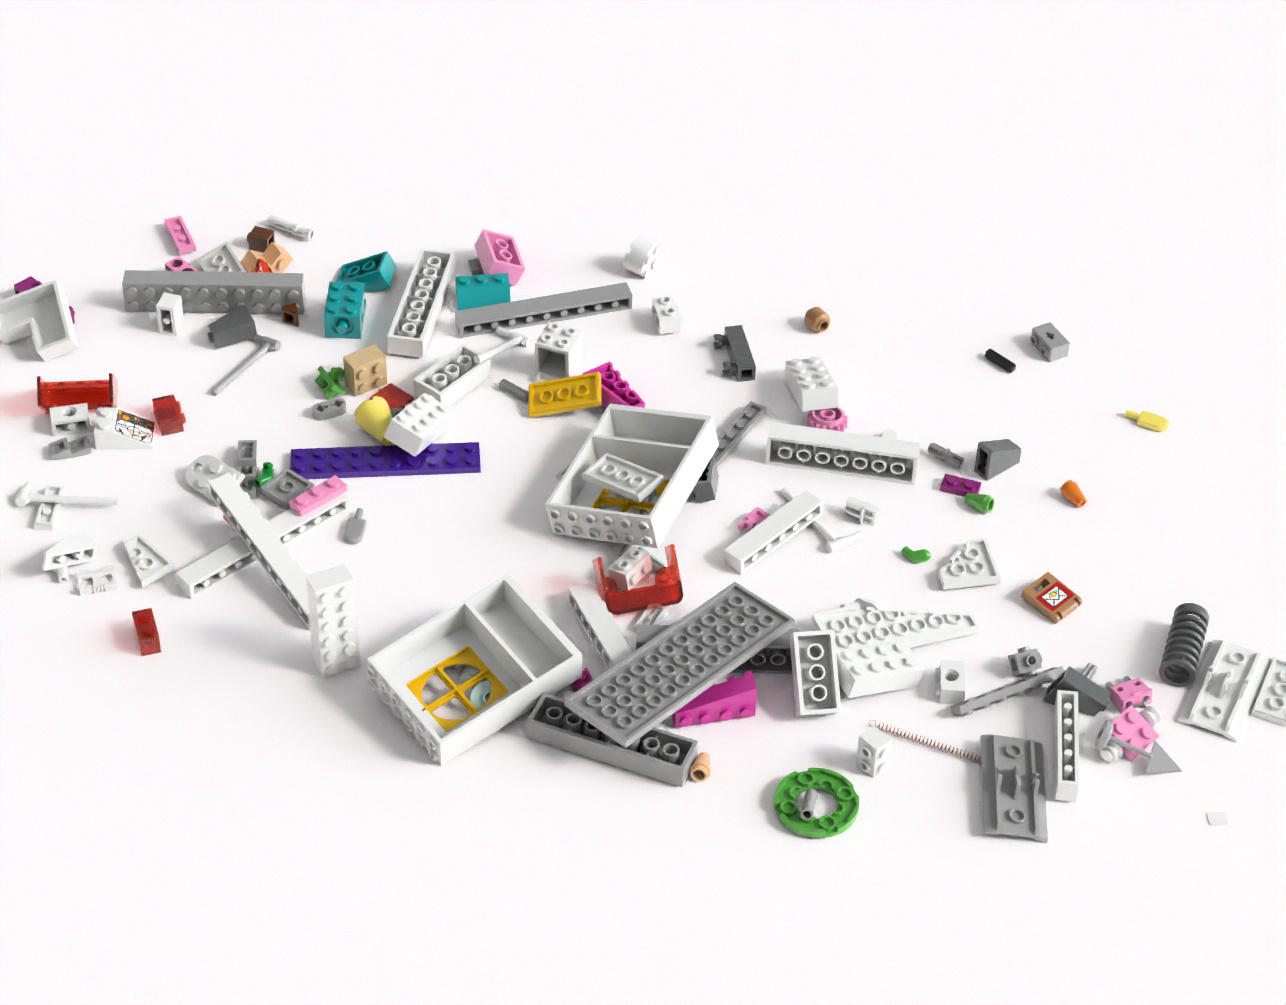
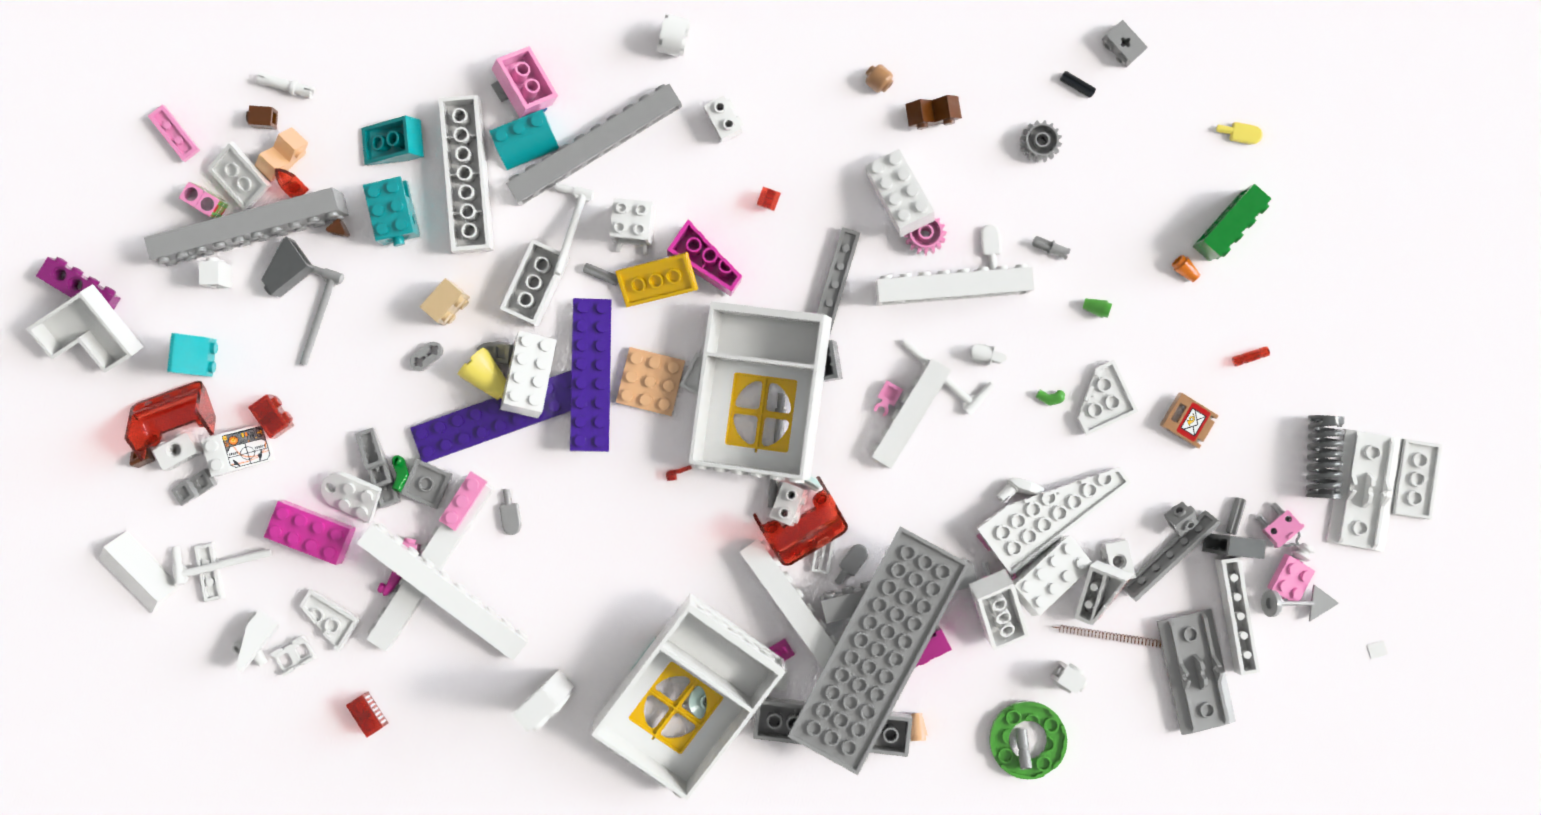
camera: 15 degrees left, 45 degrees up
(33, 420) = (135, 462): none -> reddish brown slope
(122, 353) = (192, 355): none -> slope
(161, 495) = (309, 532): none -> dark pink brick
(230, 536) = (392, 582): none -> dark pink arm
(332, 379) = (415, 321): bright green hips -> none
(394, 396) = (482, 319): clear red piece -> none
(476, 445) = (590, 375): none -> dark purple plate
(524, 530) = (672, 474): none -> clear red hand
(530, 467) = (650, 381): none -> light nougat plate
(623, 477) = (755, 410): white tile -> none
(688, 370) = (768, 199): none -> clear red tile
(739, 352) = (812, 154): dark grey brick -> none
(859, 350) = (938, 111): none -> reddish brown brick
(925, 688) = (1099, 591): none -> white wedge
(954, 385) = (1043, 131): none -> light grey gear
(959, 485) = (1073, 286): magenta plate -> none
(996, 457) = (1105, 241): slope -> none
(1123, 465) = (1232, 222): none -> green brick
(1125, 567) = (1251, 356): none -> clear red axle

